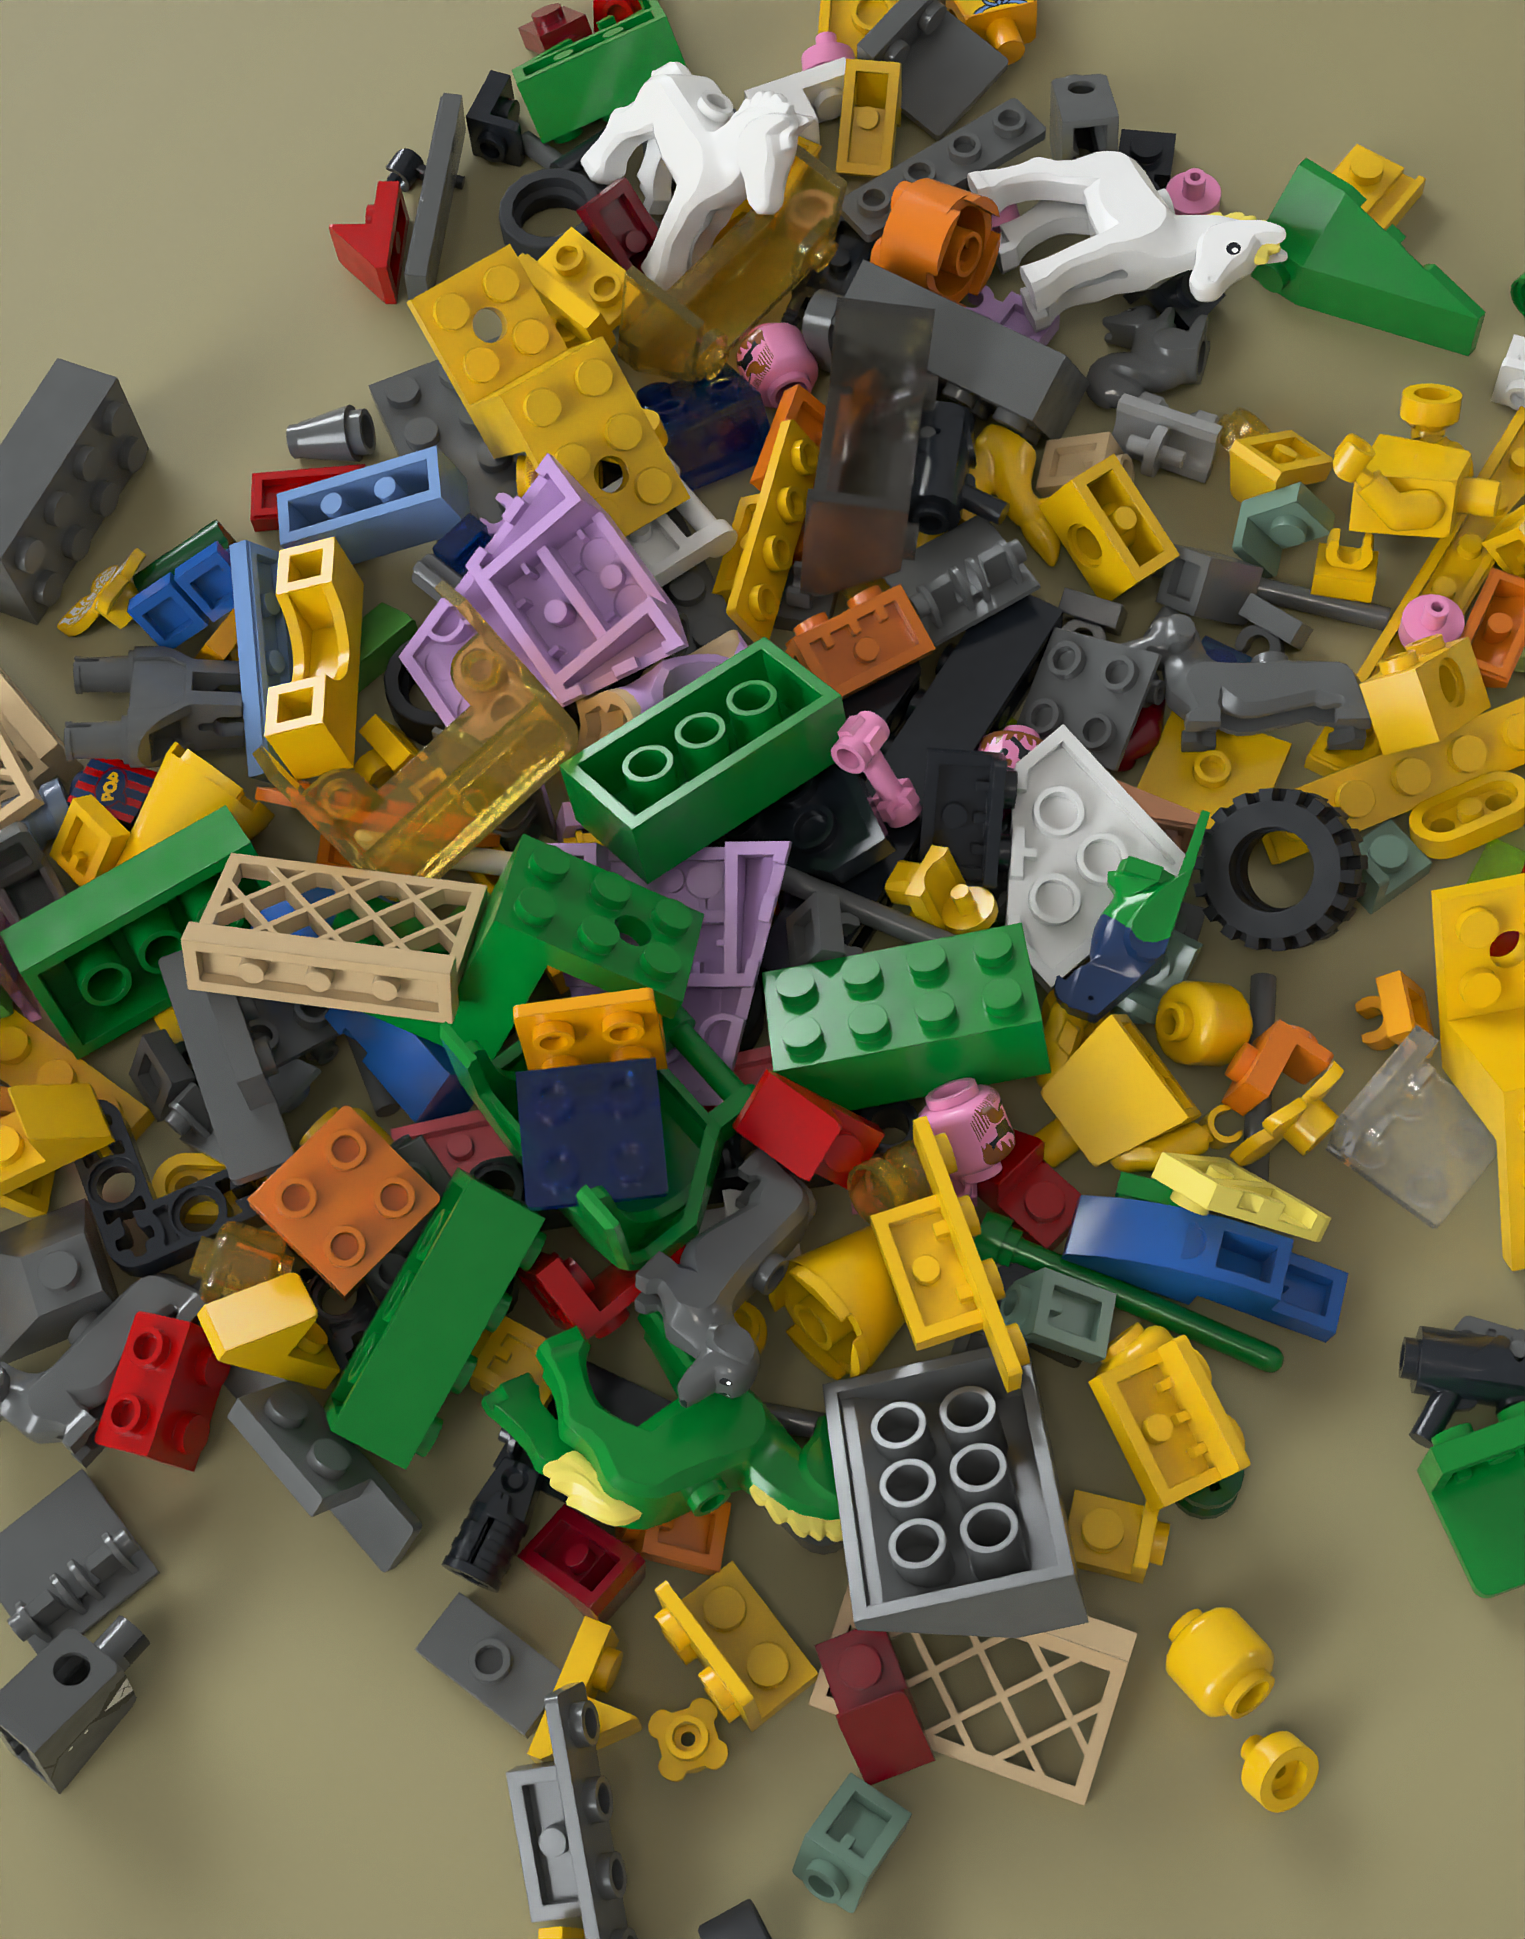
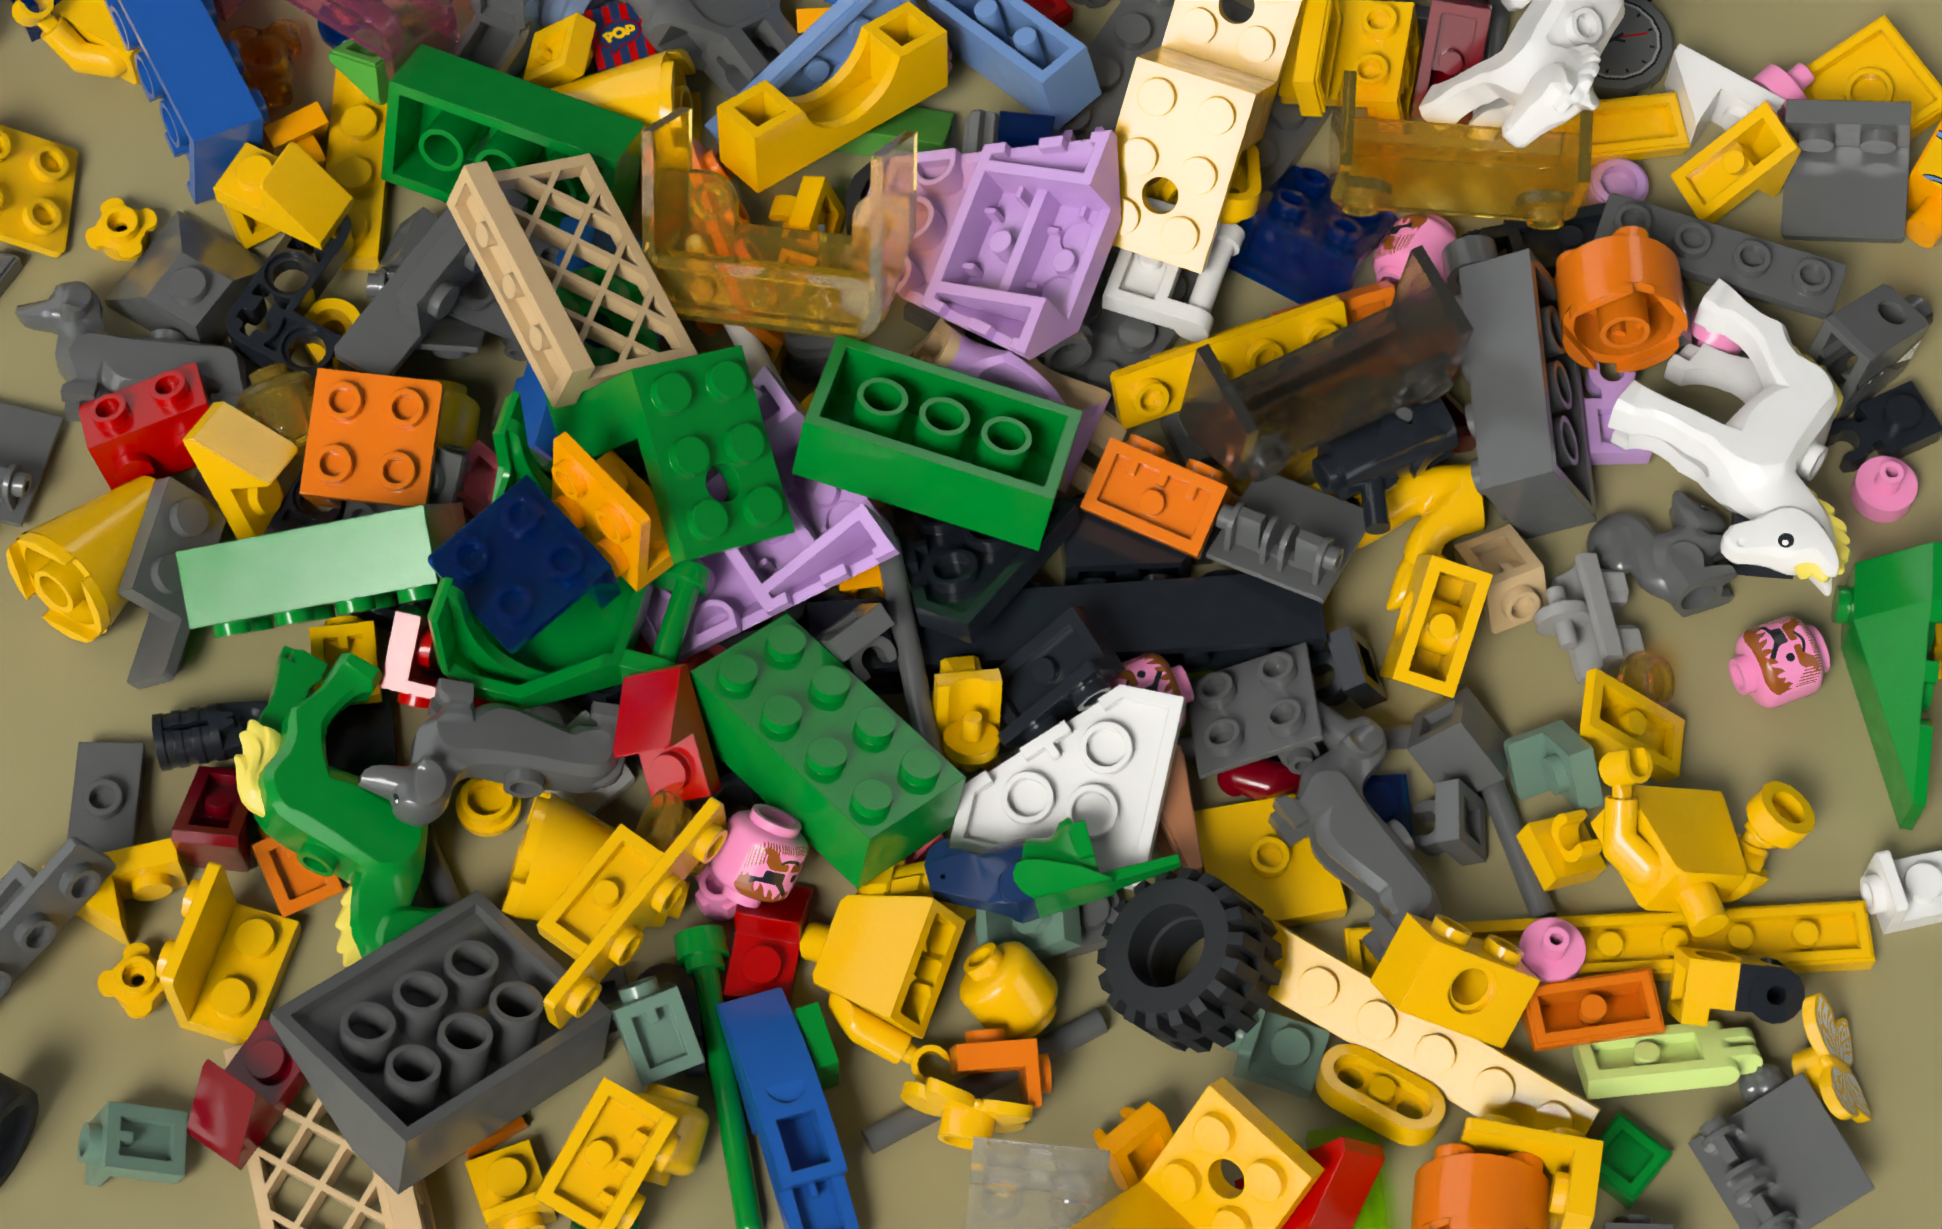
camera: 45 degrees right, 0 degrees up
(248, 1529) = (80, 560): none -> yellow cone
(860, 752) = (1032, 550): bright pink bar -> none
(1229, 1189) = (856, 1098): light yellow wing -> none
(1290, 339) = (1779, 662): none -> bright pink head

